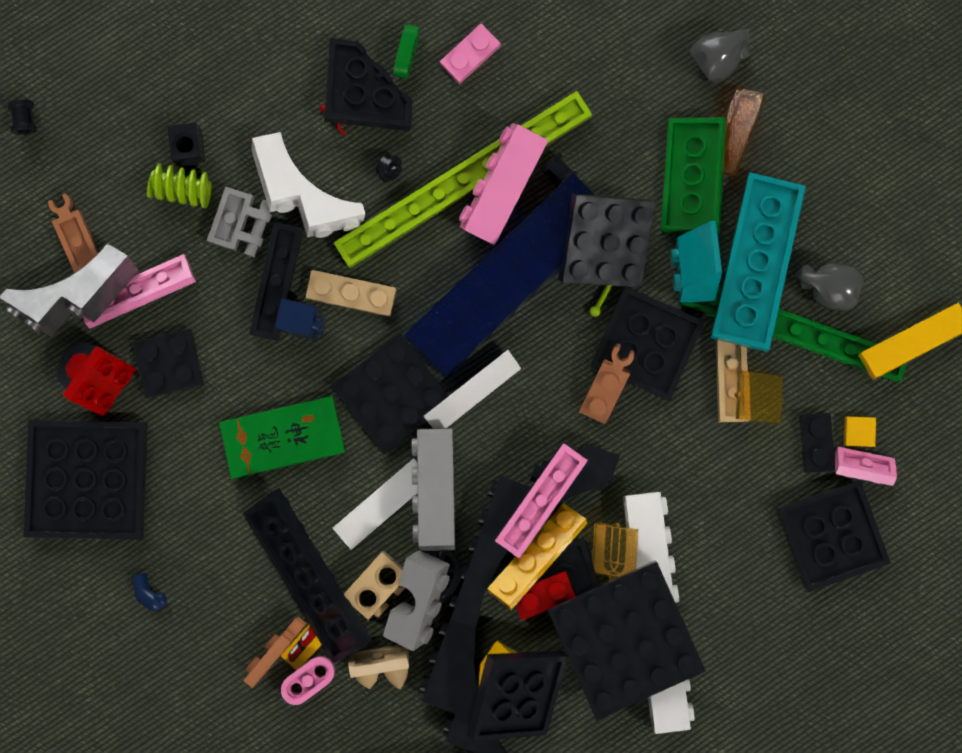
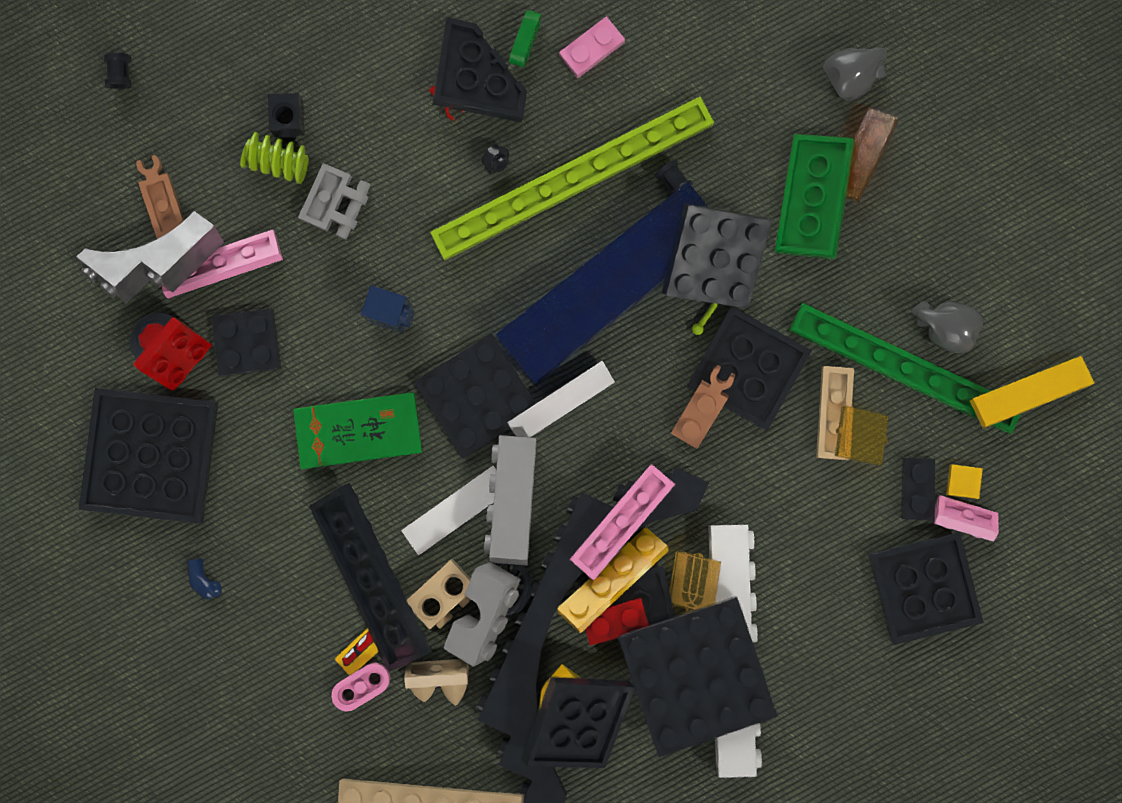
camera: 10 degrees right, 0 degrees up
(275, 648) = (330, 650): nougat plate -> none
(276, 279) = (366, 265): black plate -> none
(288, 188) = (388, 171): white arch -> none
(351, 293) = (443, 287): tan plate -> none
(503, 183) = (613, 186): bright pink brick -> none
(697, 264) = (809, 289): teal slope -> none
(758, 262) = (873, 293): teal plate -> none

